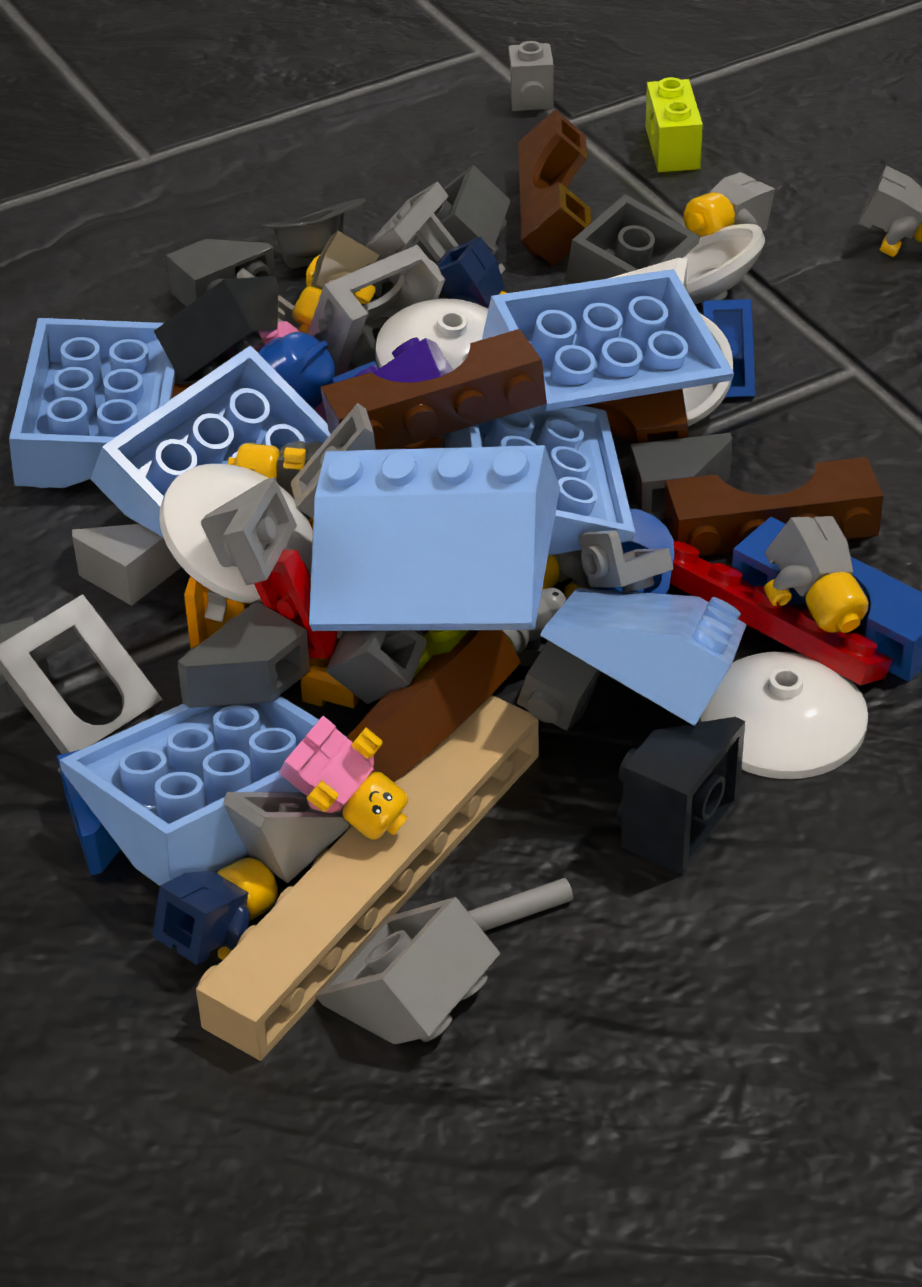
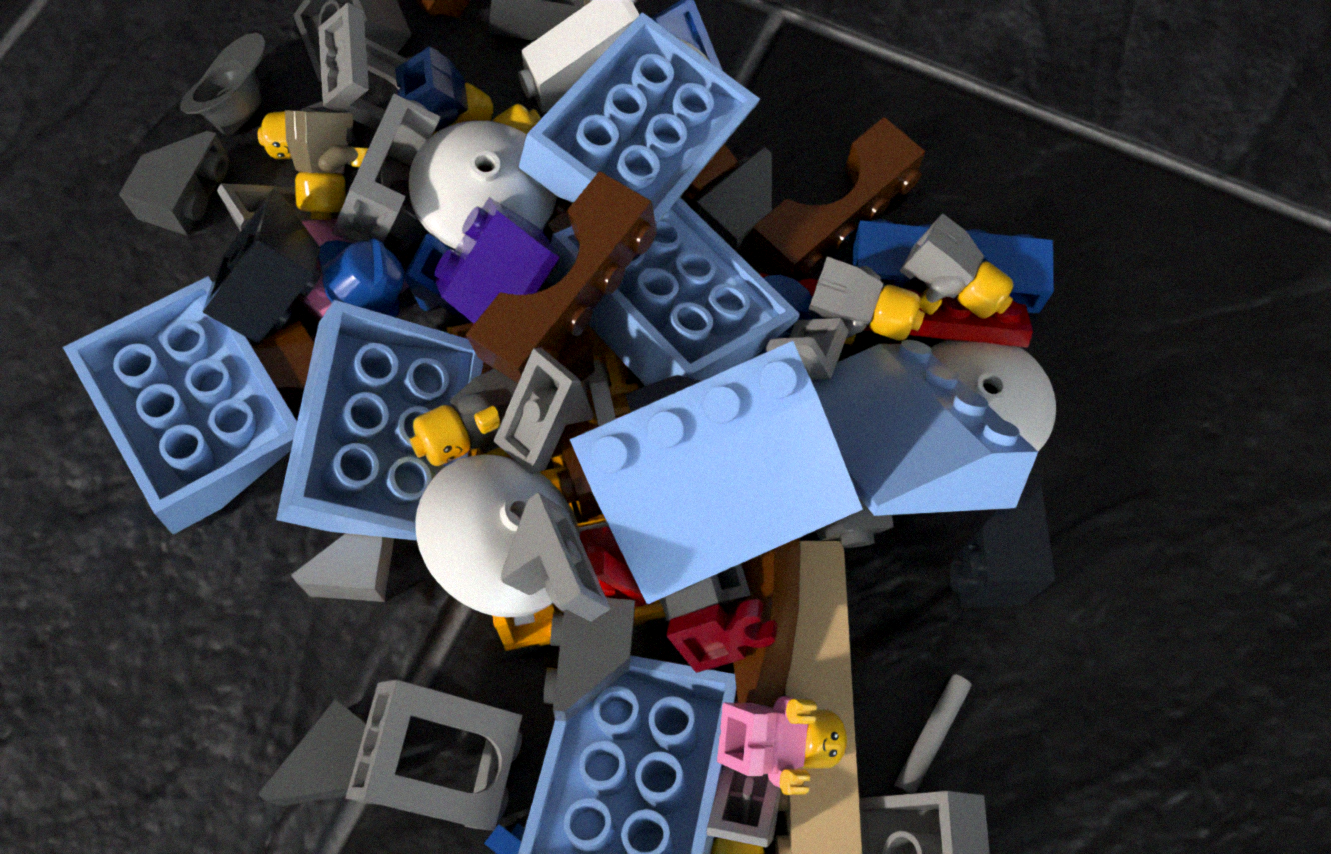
camera: 40 degrees left, 25 degrees up
(354, 688) = (715, 639): none -> dark red plate
(702, 553) = (862, 301): none -> light grey piece

